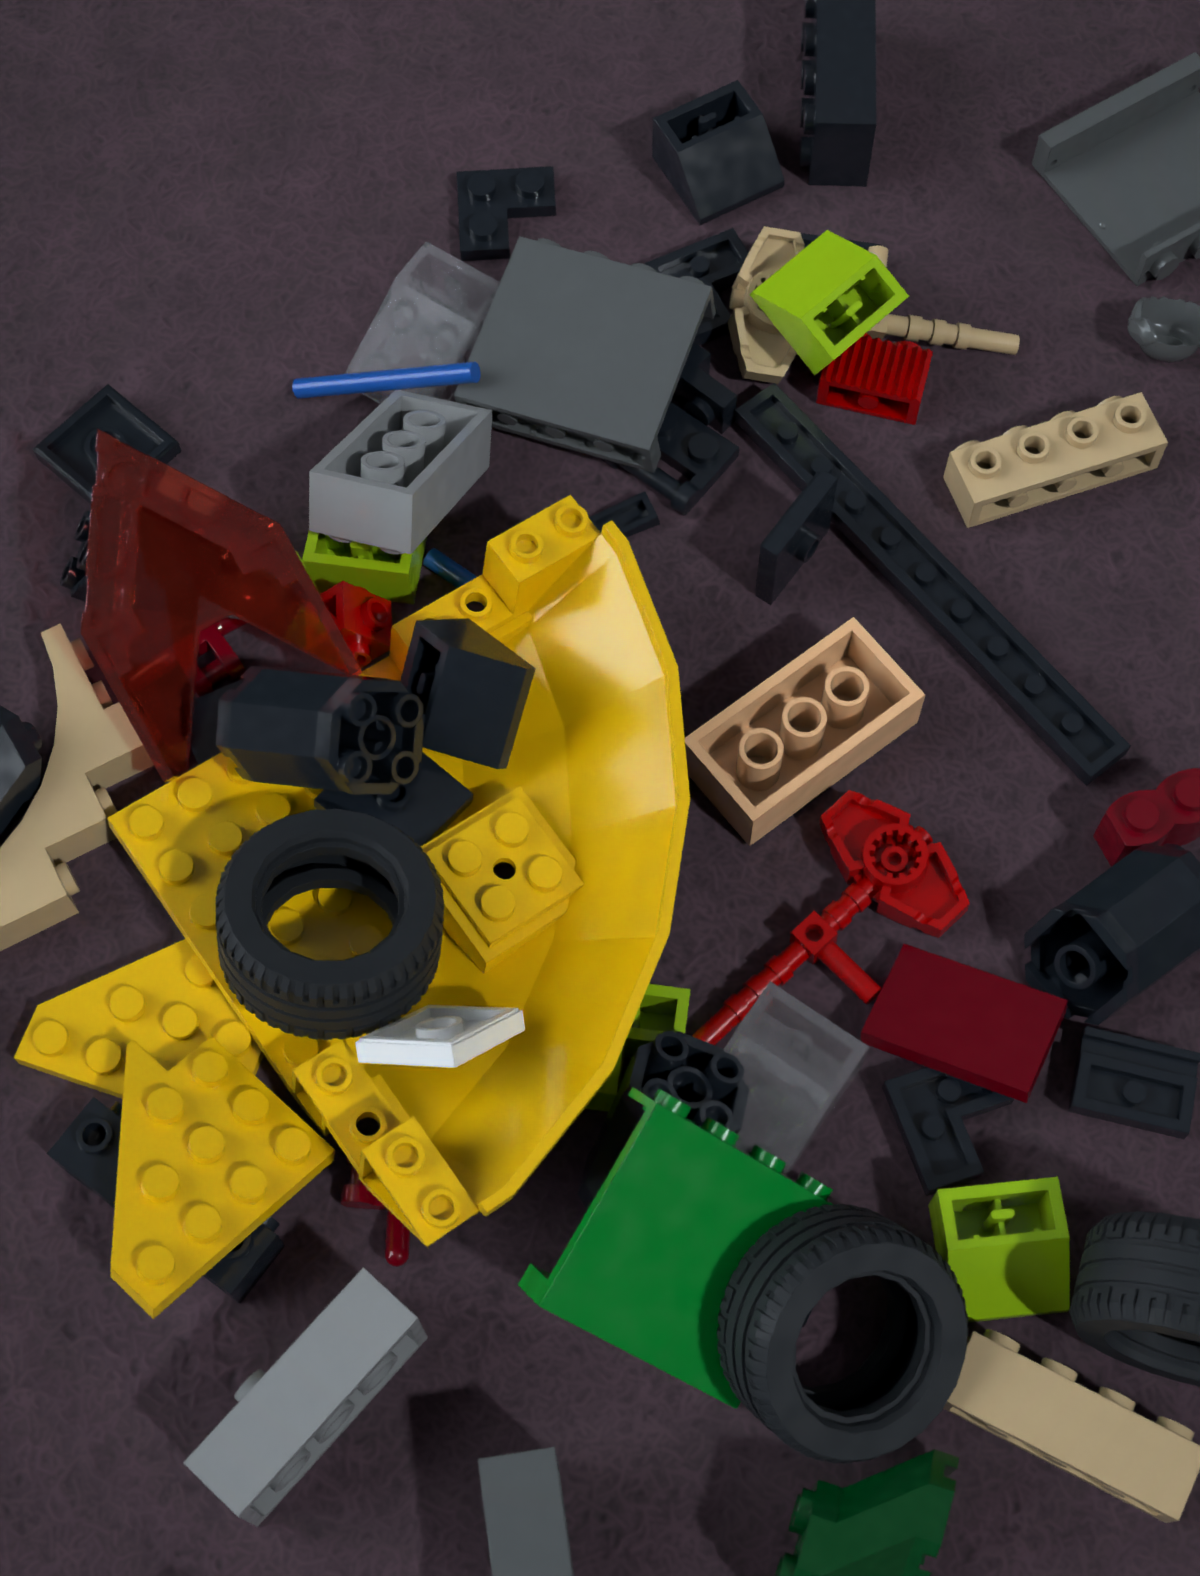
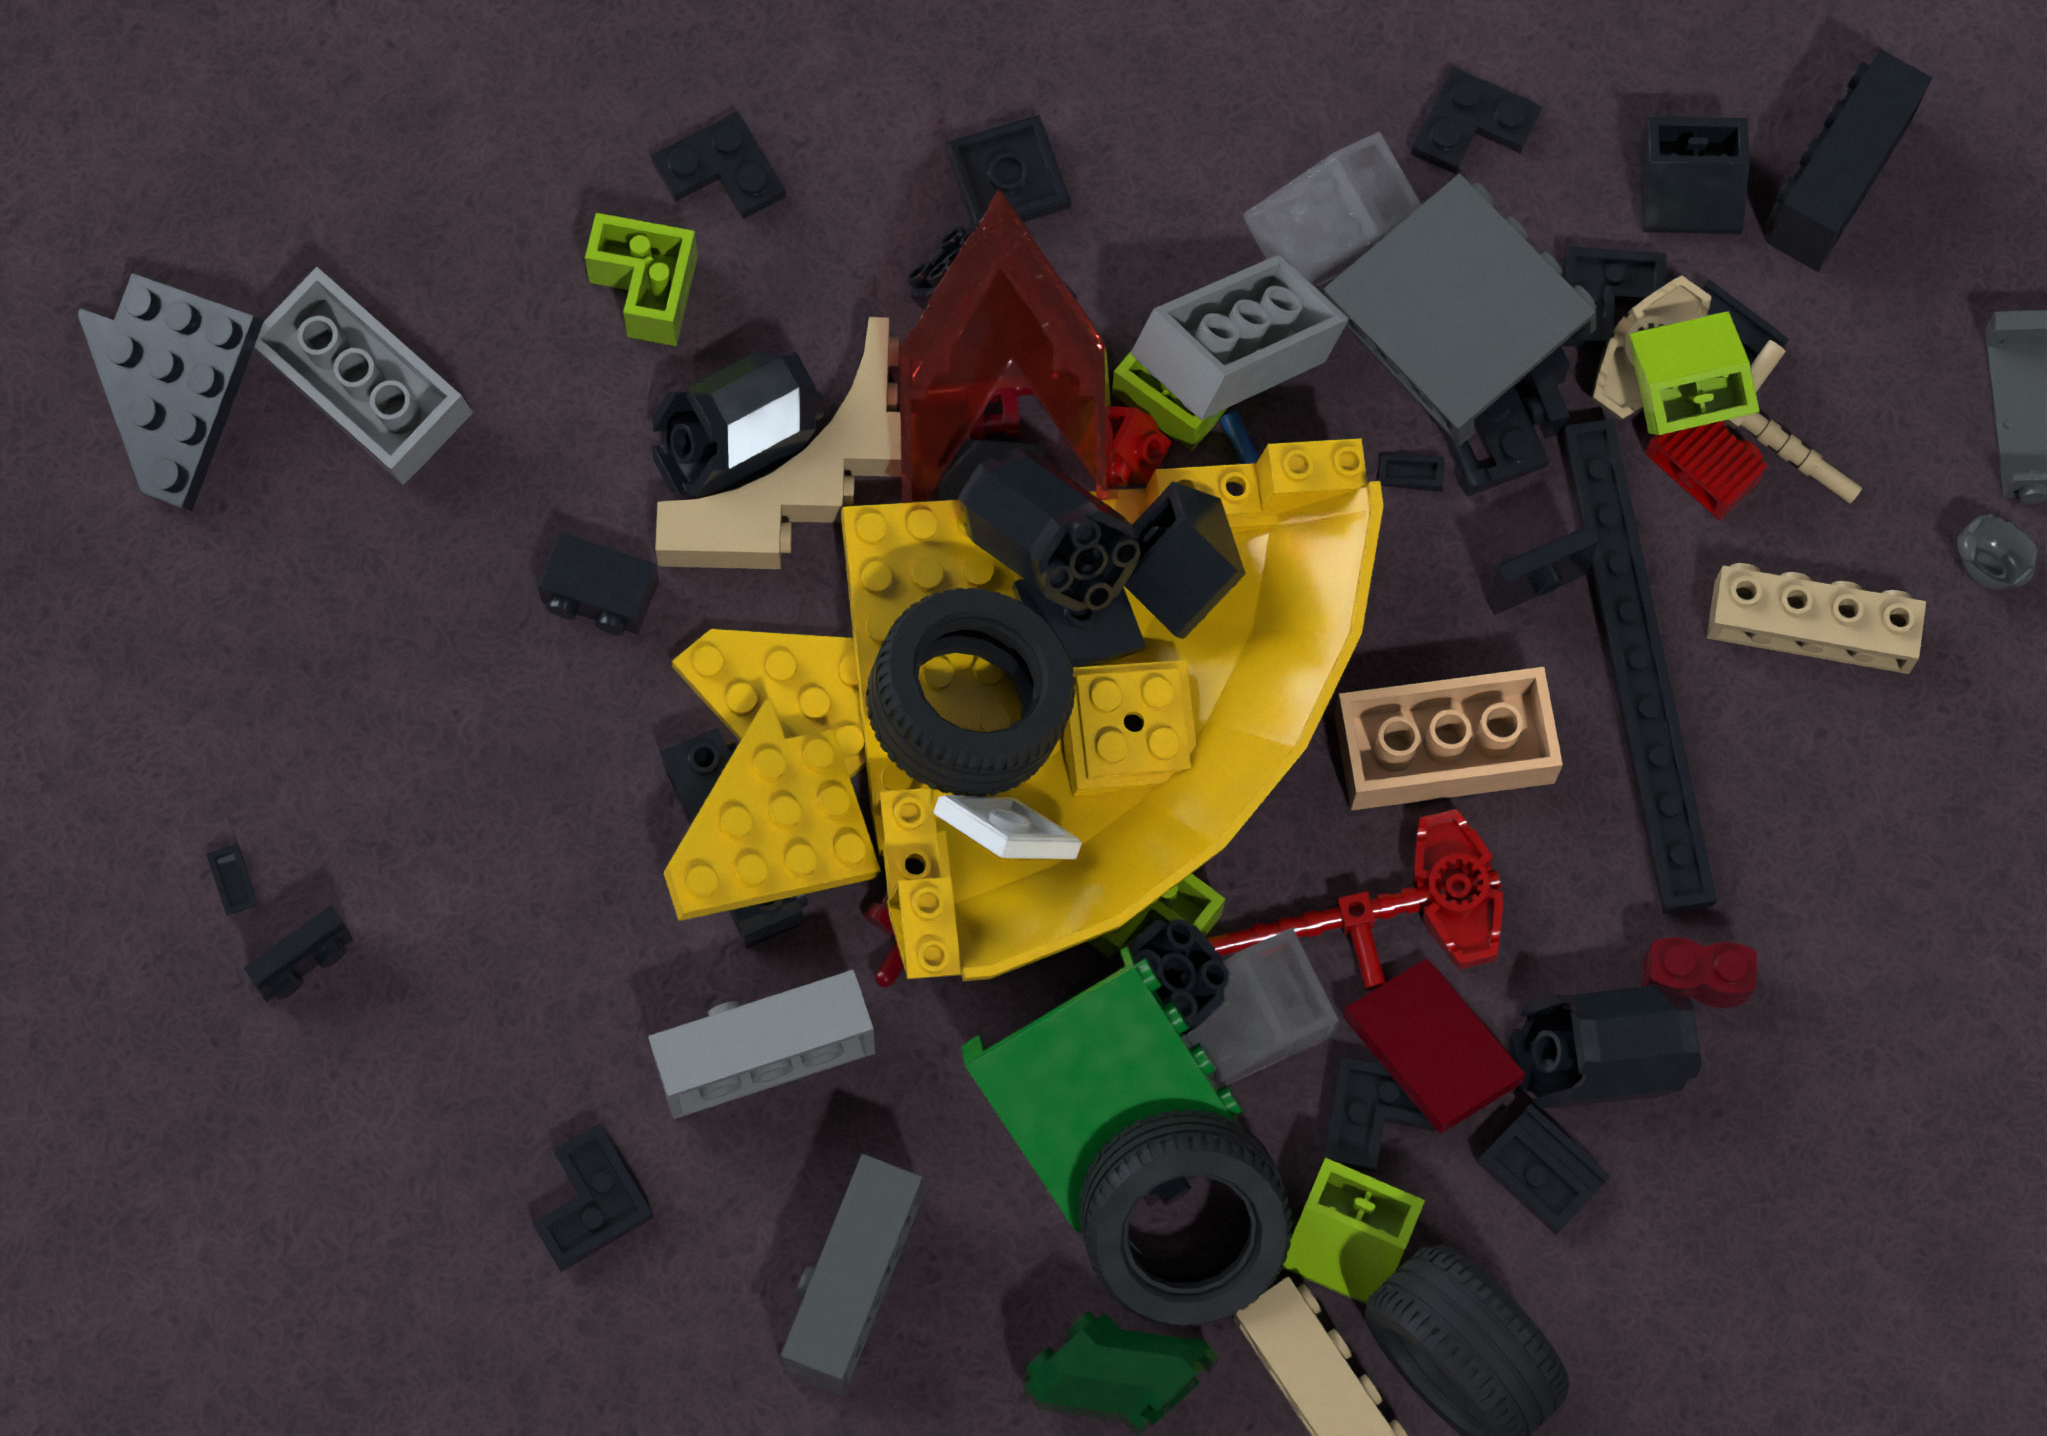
camera: 25 degrees right, 5 degrees up
(387, 380) = (1276, 241): blue bar -> none

